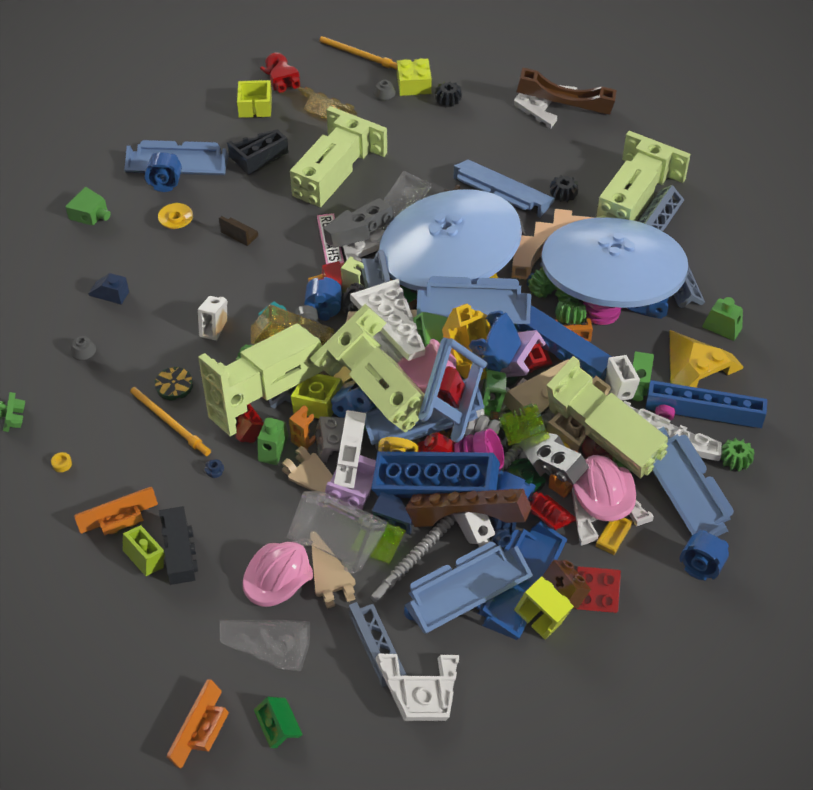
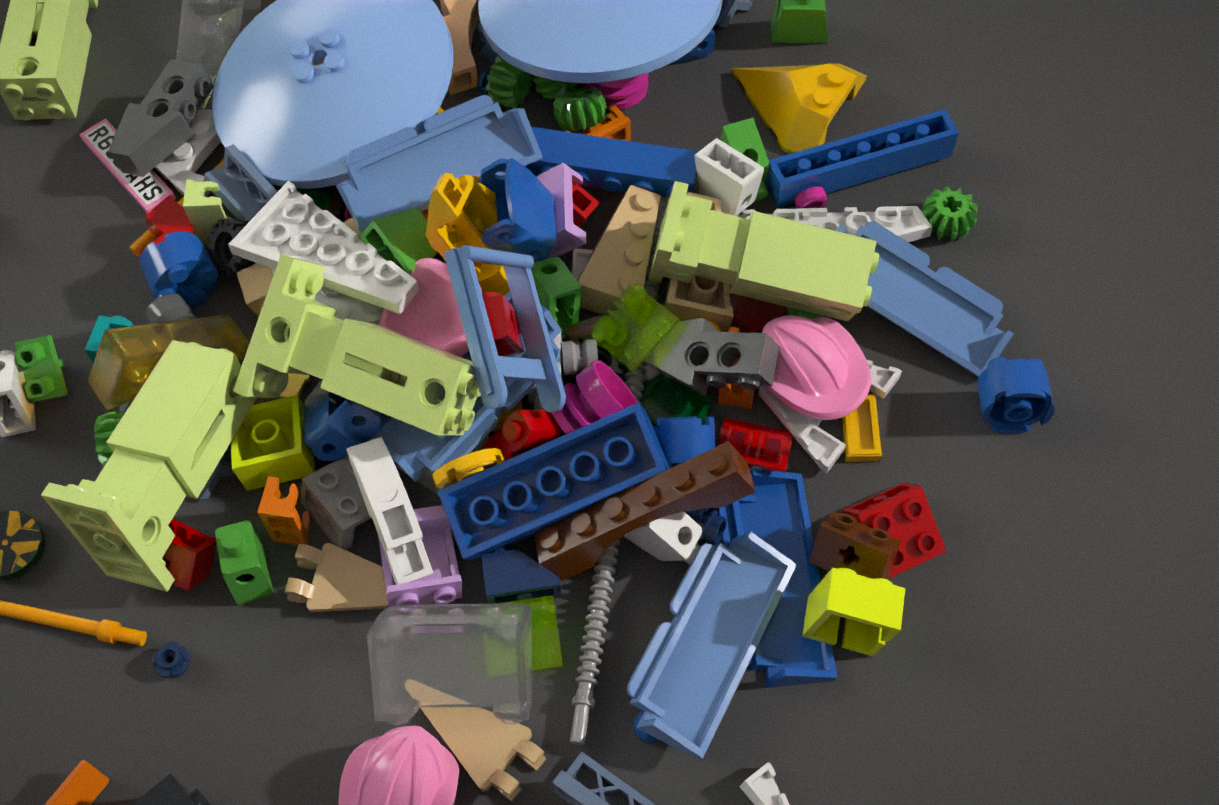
camera: 30 degrees left, 10 degrees up
(234, 313) = (41, 368): none -> bright green hips

